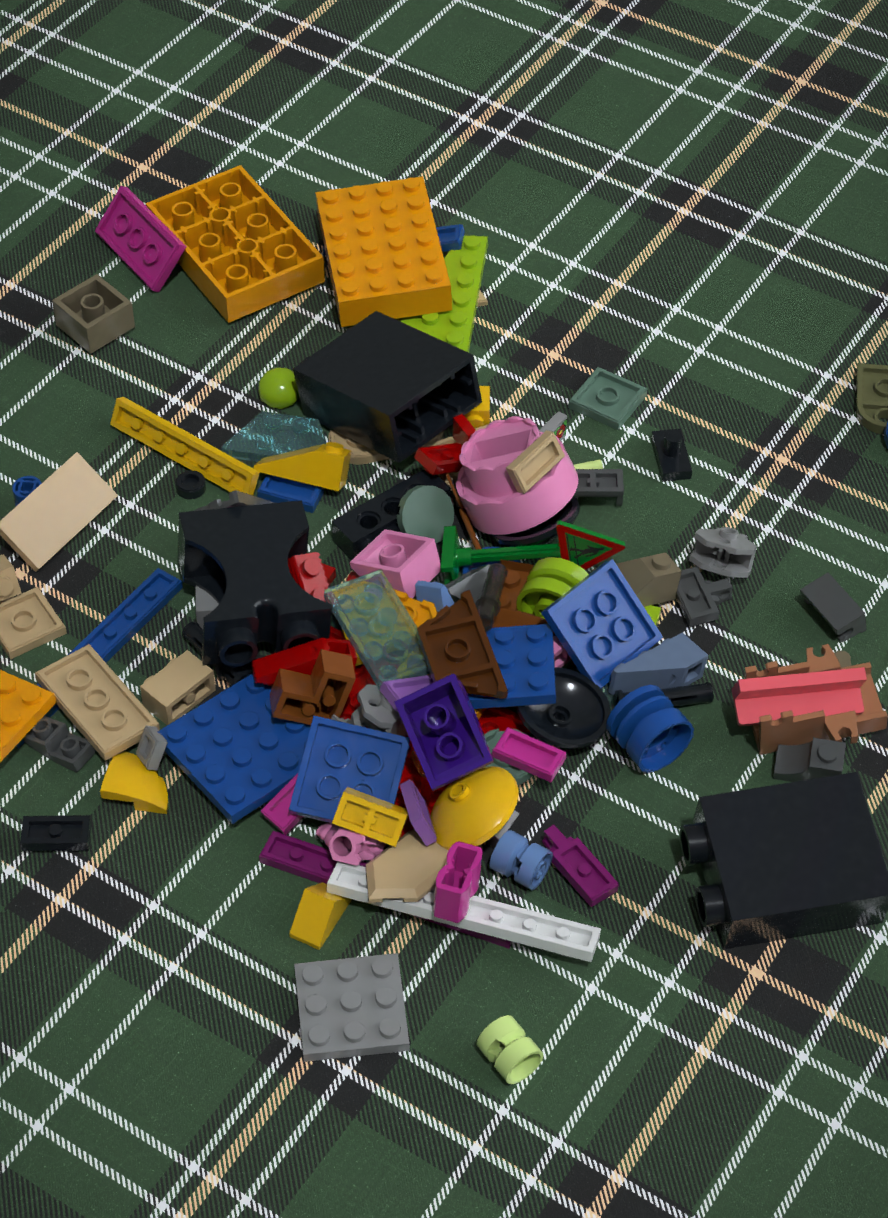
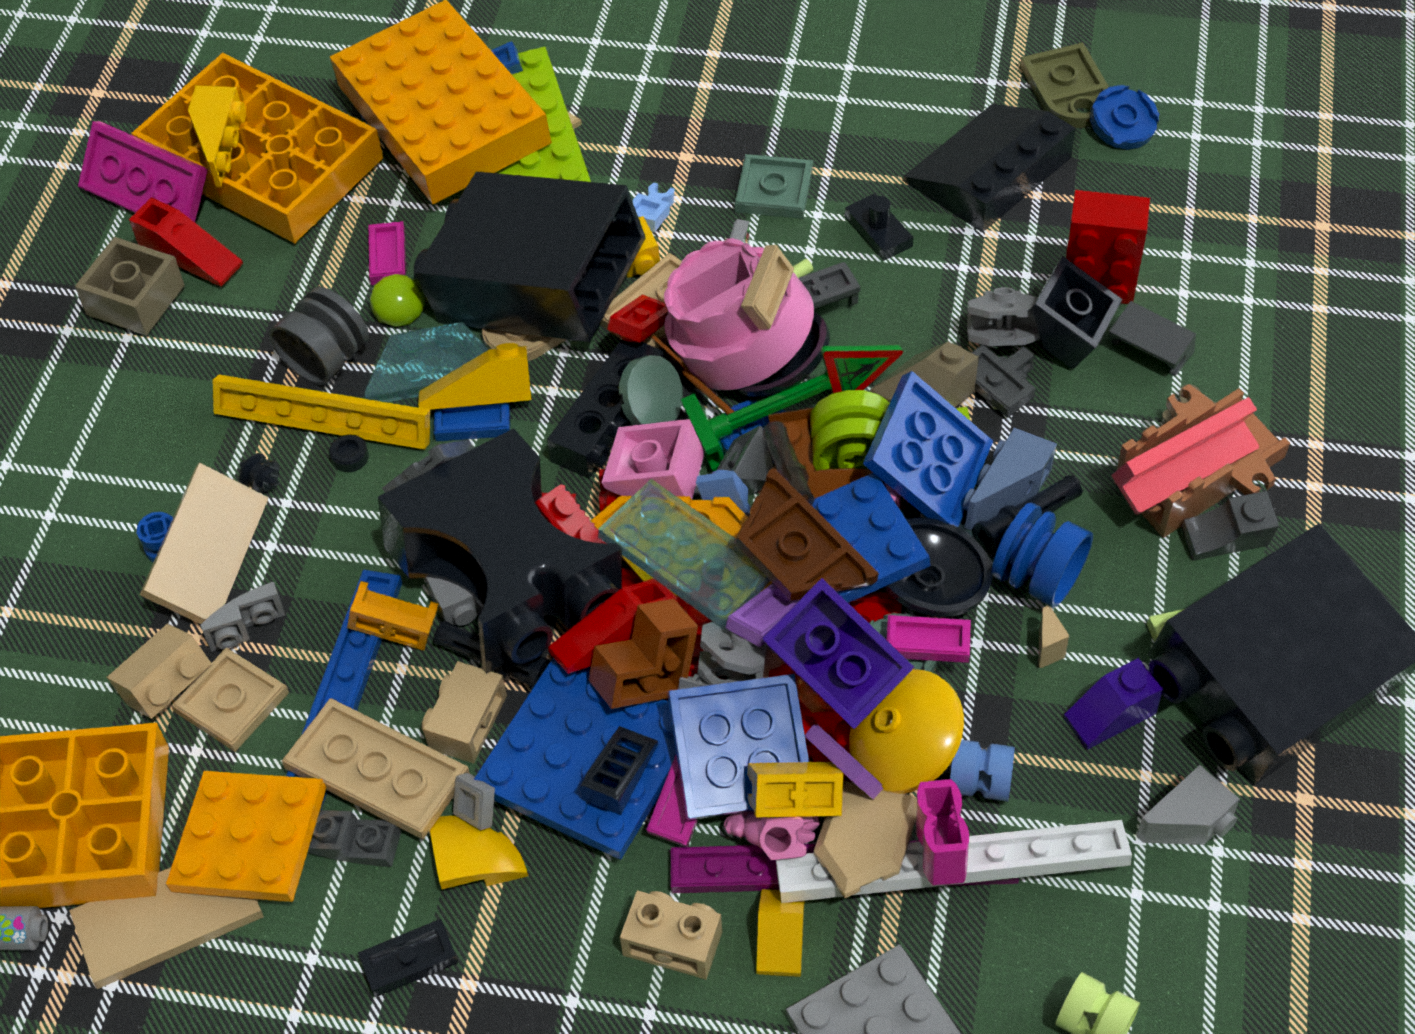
camera: 20 degrees left, 5 degrees up
(49, 569) = (230, 622): none -> light grey slope
(119, 476) = (259, 473): none -> black wheel
(148, 298) = (173, 233): none -> red slope
(159, 605) = (391, 618): none -> light orange hinge
(206, 213) = (216, 121): none -> yellow slope
(207, 393) = (319, 335): none -> dark grey wheel
(241, 885) = (671, 933): none -> tan brick
(247, 776) = (617, 798): none -> black slope
(292, 348) = (386, 250): none -> dark pink tile
(462, 429) = (644, 280): red tile -> none
(503, 383) = (655, 206): none -> light blue plate
(579, 866) = (1047, 750): magenta hinge -> none
(625, 791) = (1052, 638): none -> tan slope
(647, 853) = (1114, 704): none -> dark purple slope
(658, 945) = (1191, 812): none -> light grey slope
(775, 563) = (1073, 312): none -> black slope
(788, 437) = (993, 162): none -> black slope
(825, 524) = (1109, 239): none -> red brick

